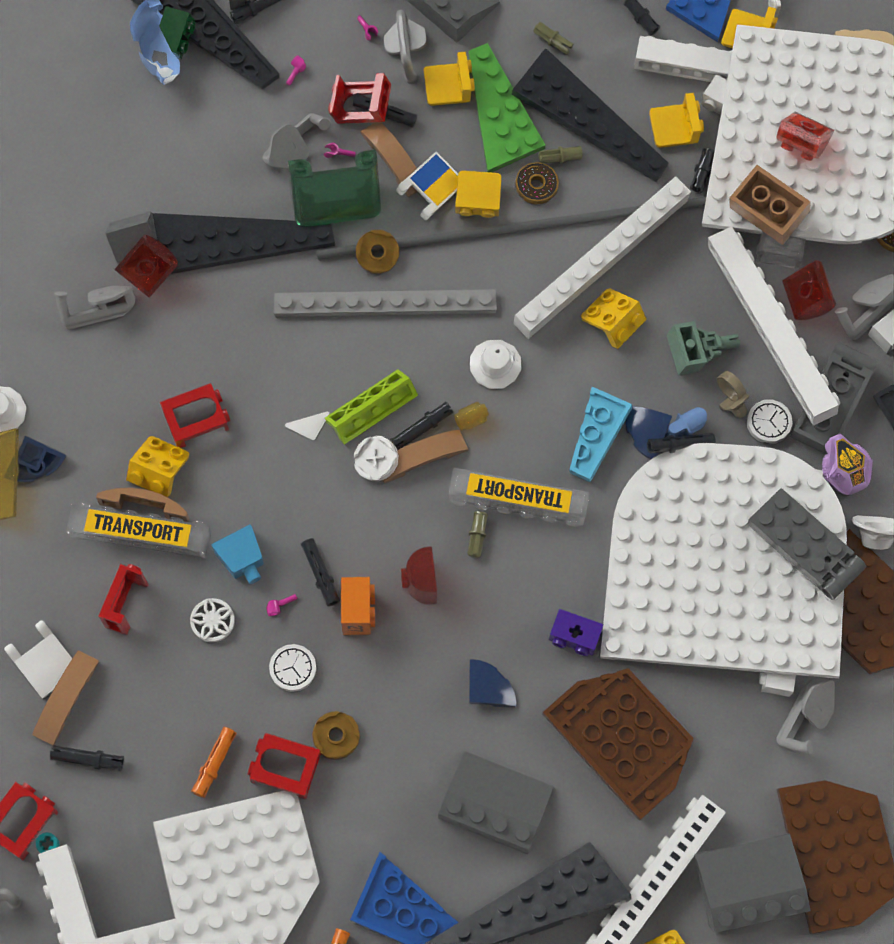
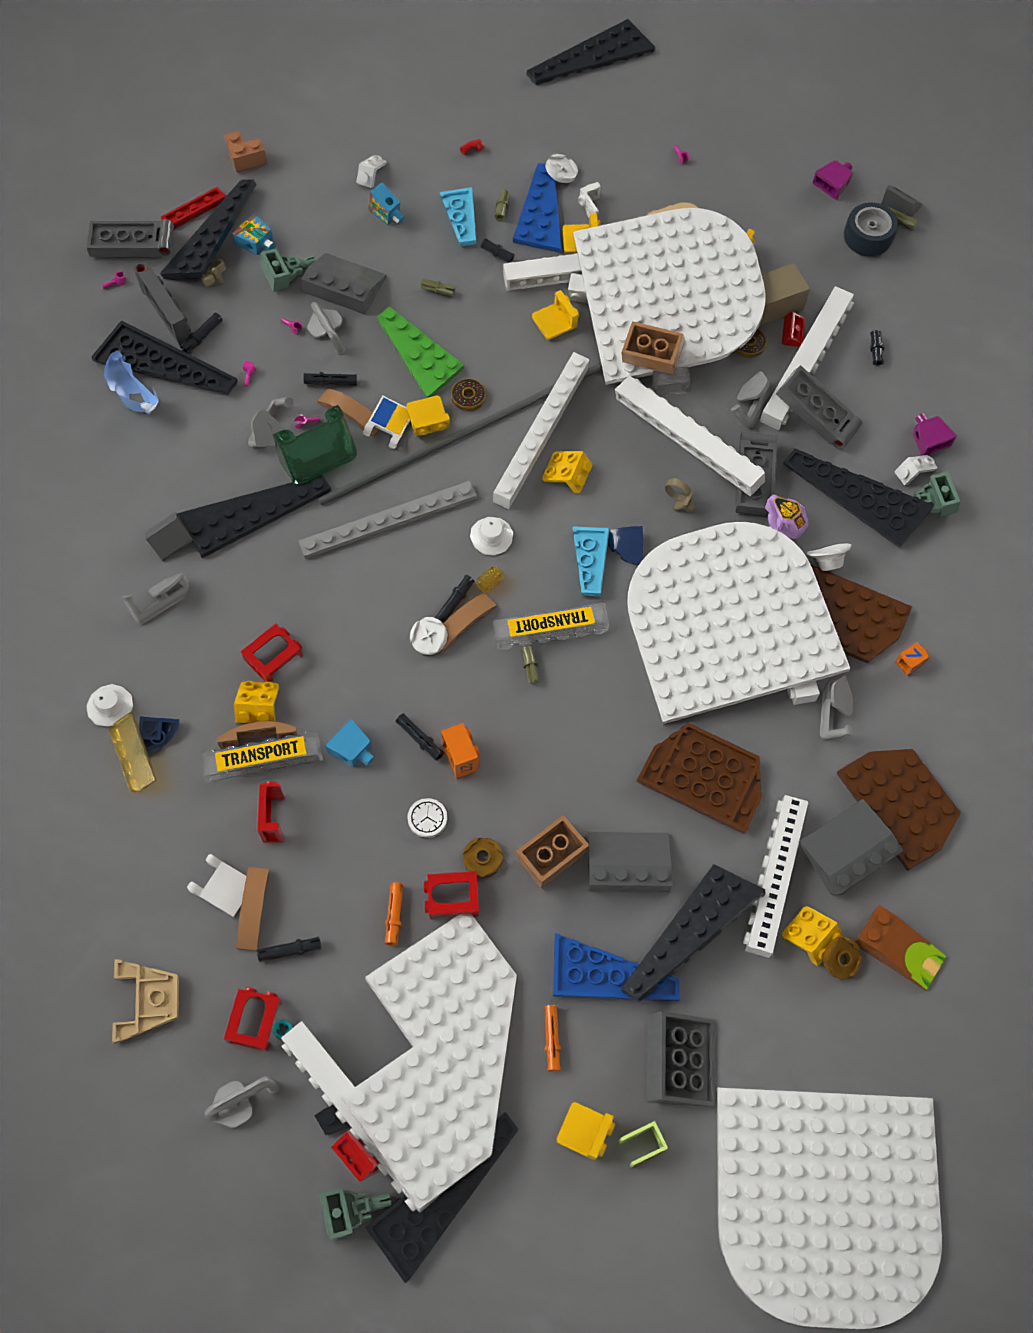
camera: 20 degrees left, 5 degrees down
(147, 265) = (189, 551): clear red brick -> none
(176, 28) = (143, 369): dark green slope -> none
(212, 620) = (348, 805): white wheel -> none
(273, 606) = (393, 777): dark pink hand -> none
(308, 426) = (365, 631): white sticker -> none
(371, 263) = (361, 492): pearl gold tile -> none
(373, 407) = (409, 599): lime fence -> none
(380, 94) = (321, 364): red panel -> none
(413, 759) = (552, 851): none -> medium nougat brick
(420, 576) = (502, 711): clear red brick -> none
(449, 82) = (372, 343): yellow bracket -> none
(489, 686) = (587, 775): dark blue brick -> none
(560, 154) = (478, 368): olive axle -> none
(564, 627) = (629, 705): dark purple brick -> none
(567, 100) = (467, 328): black wing -> none
(671, 443) = (651, 546): black pin -> none
(688, 422) = (655, 528): medium blue arm -> none
(696, 347) = (638, 471): sand green brick -> none
(702, 170) = (589, 344): black pin -> none
(769, 421) = (715, 506): white tile -> none
(804, 135) = (658, 291): clear red brick -> none
(806, 544) = (785, 580): dark grey hinge -> none
(809, 292) = (706, 403): clear red brick -> none

